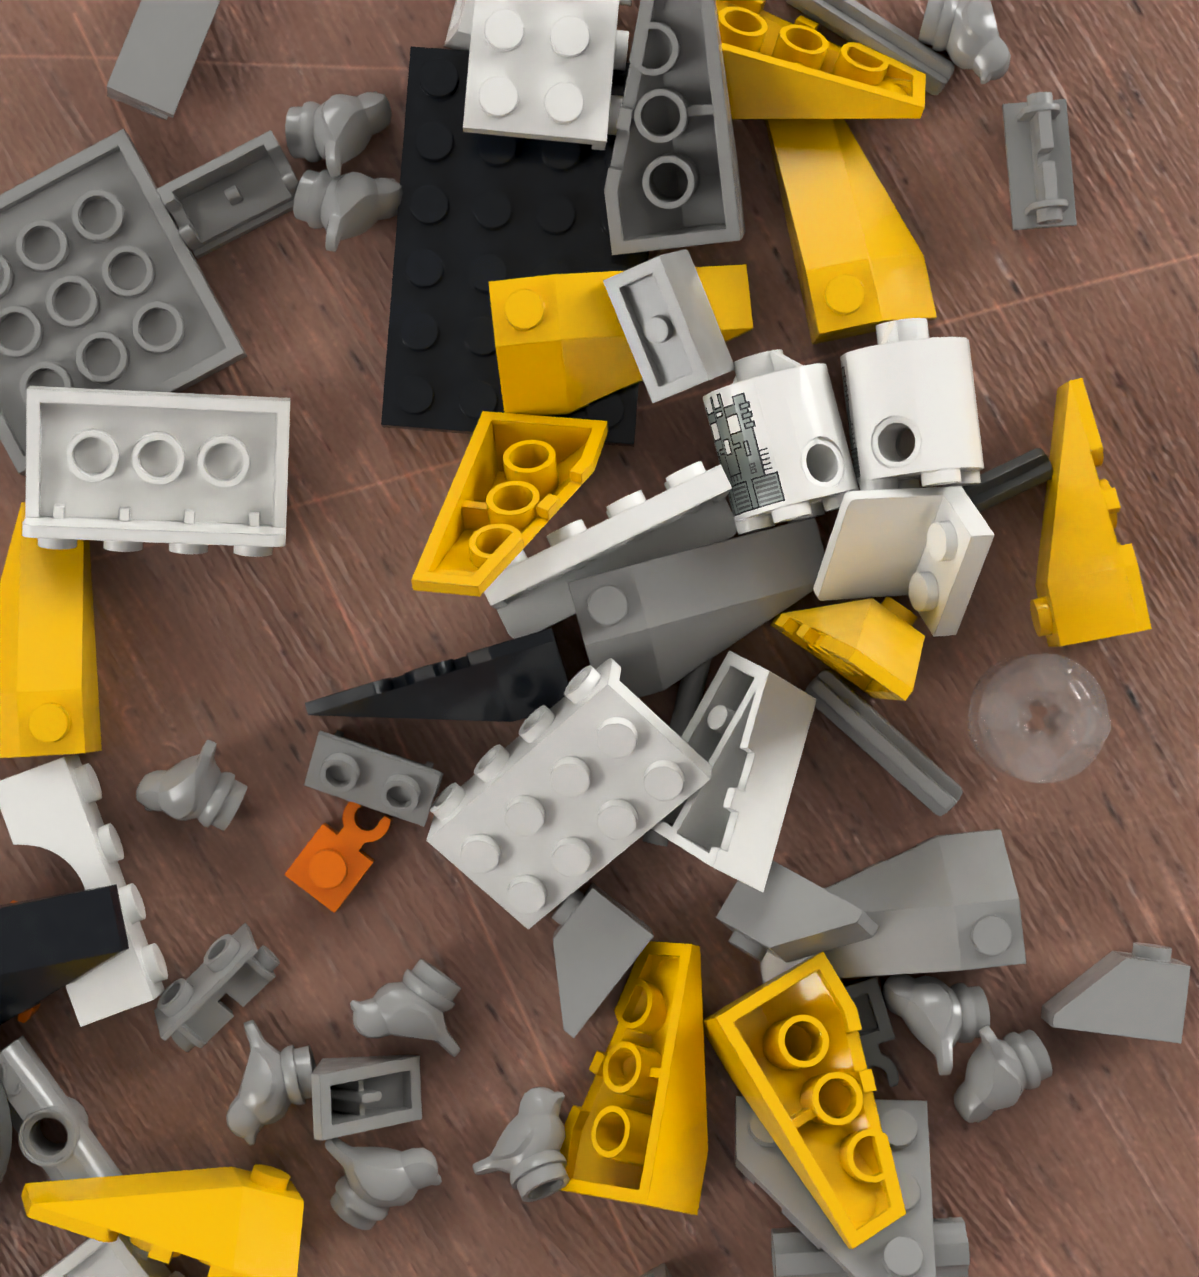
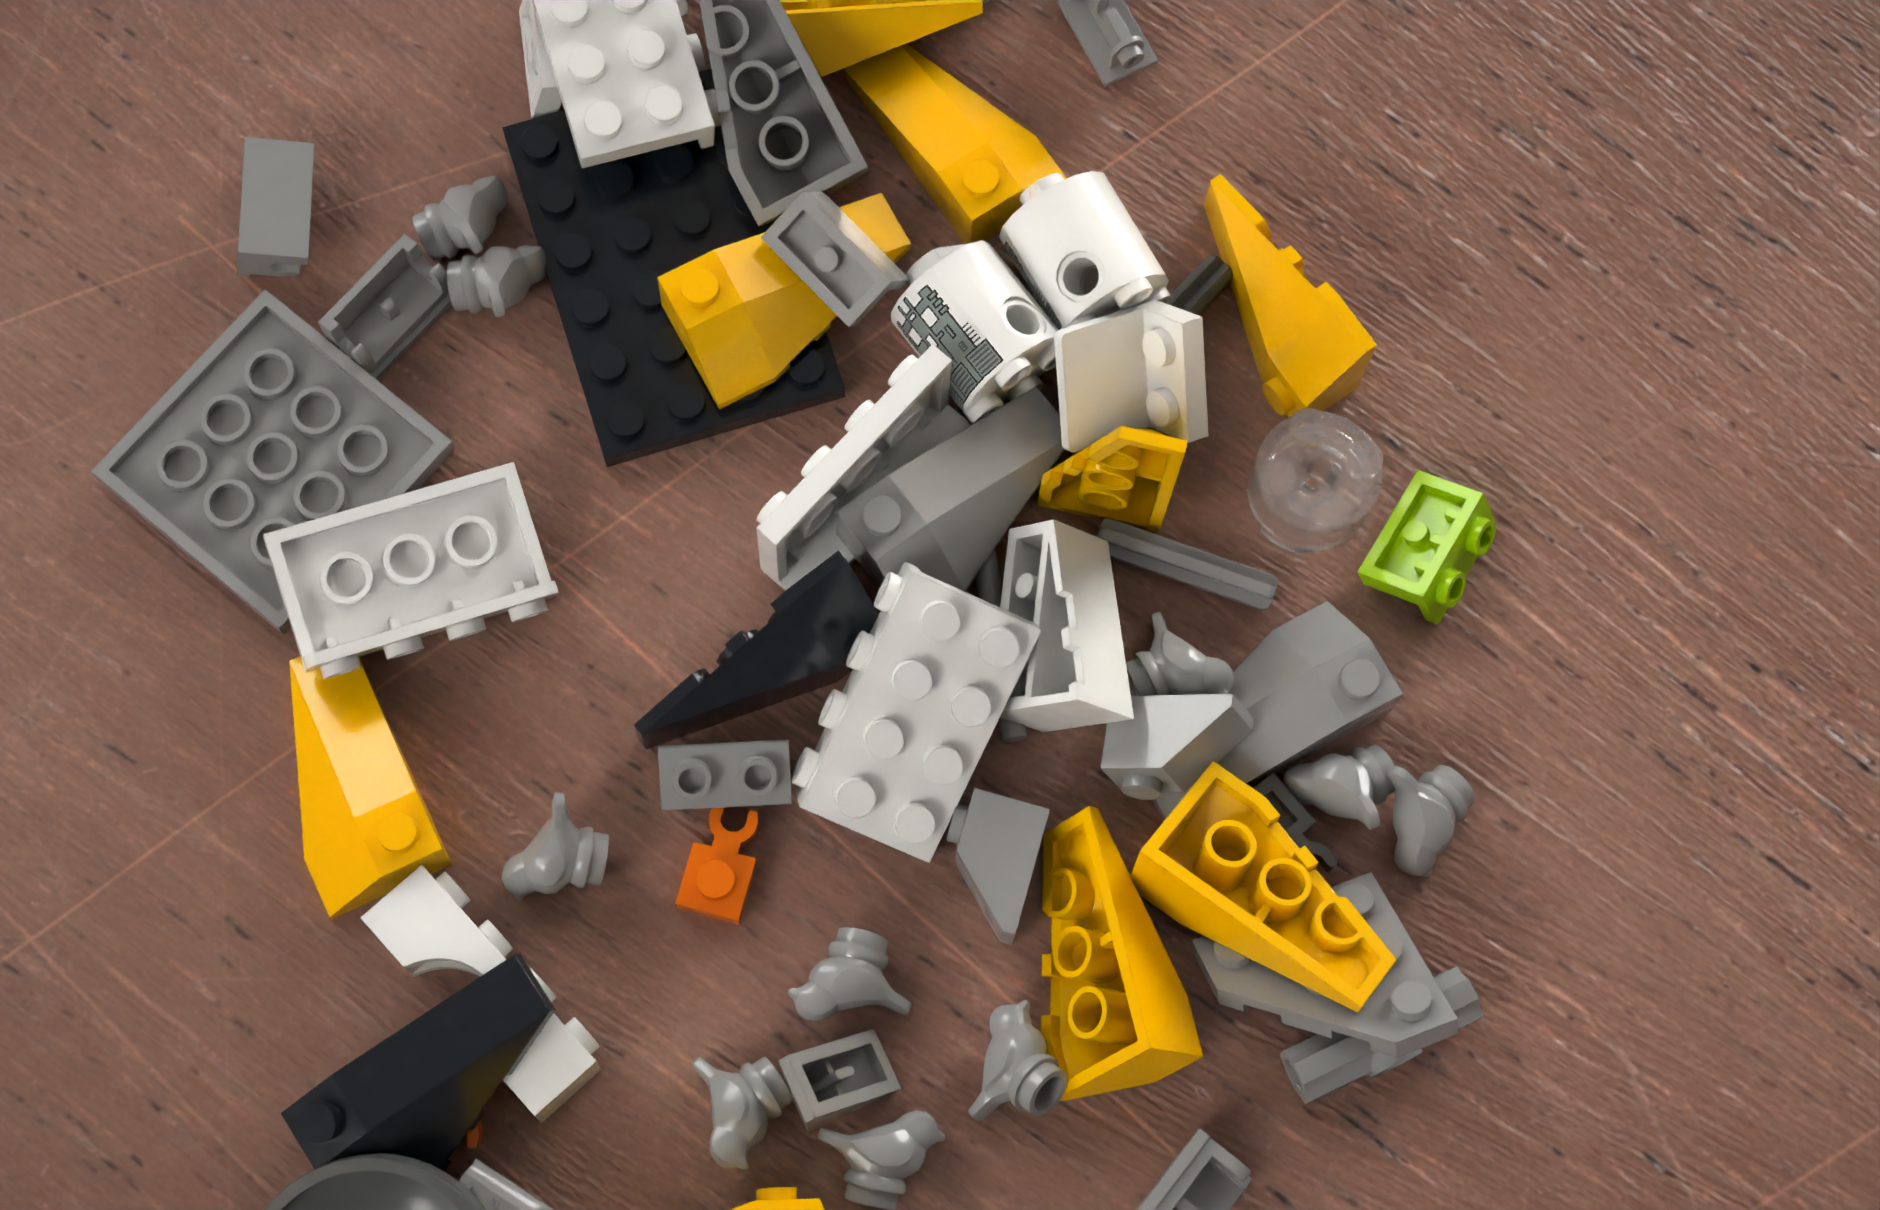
camera: 30 degrees left, 15 degrees down
(192, 1007) = (657, 1015): light grey hinge -> none
(504, 494) = (748, 445): yellow wedge -> none
(829, 844) = (1176, 667): none -> light grey animal
(1120, 818) = (1430, 544): none -> lime bracket
(1126, 996) = (1511, 699): light grey slope -> none

